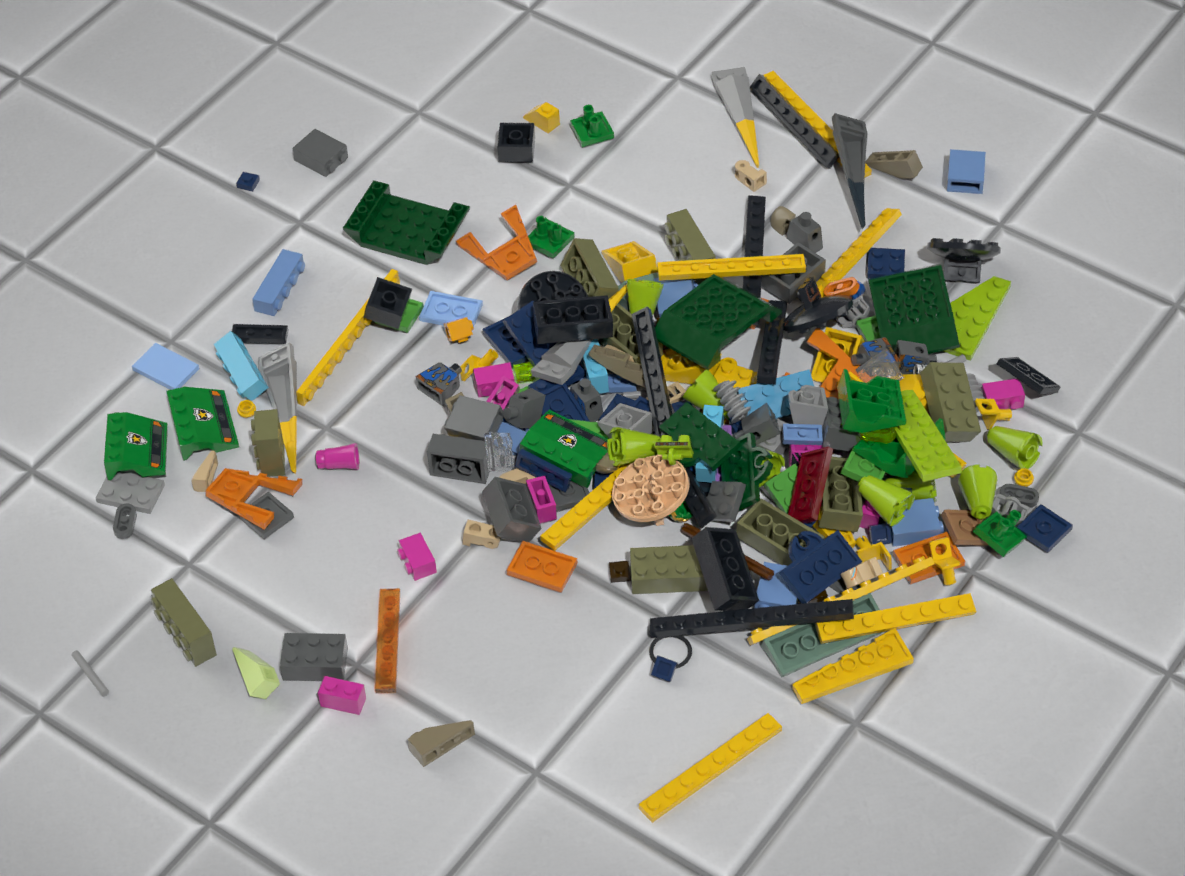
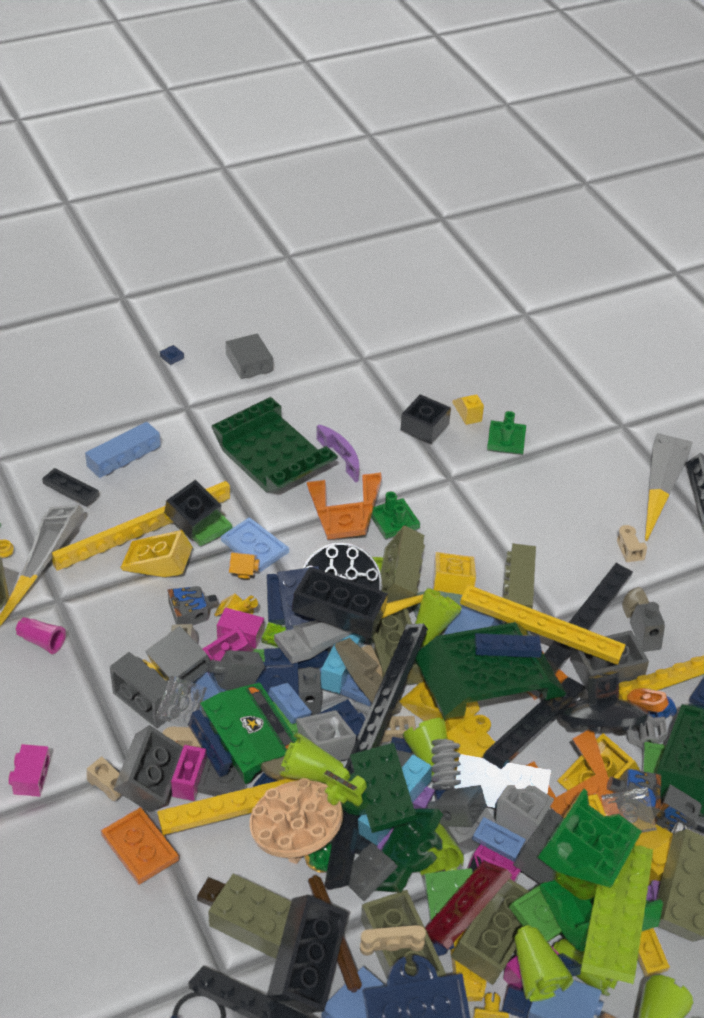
camera: 25 degrees right, 5 degrees down
(240, 366) = (28, 507): medium azure brick -> none
(381, 354) = (158, 555): none -> yellow slope
(447, 194) = (334, 440): none -> medium lavender slope
(581, 414) = (289, 702): none -> medium blue plate
(722, 293) = (507, 645): none -> dark blue plate
(777, 531) = (392, 939): none -> tan plate

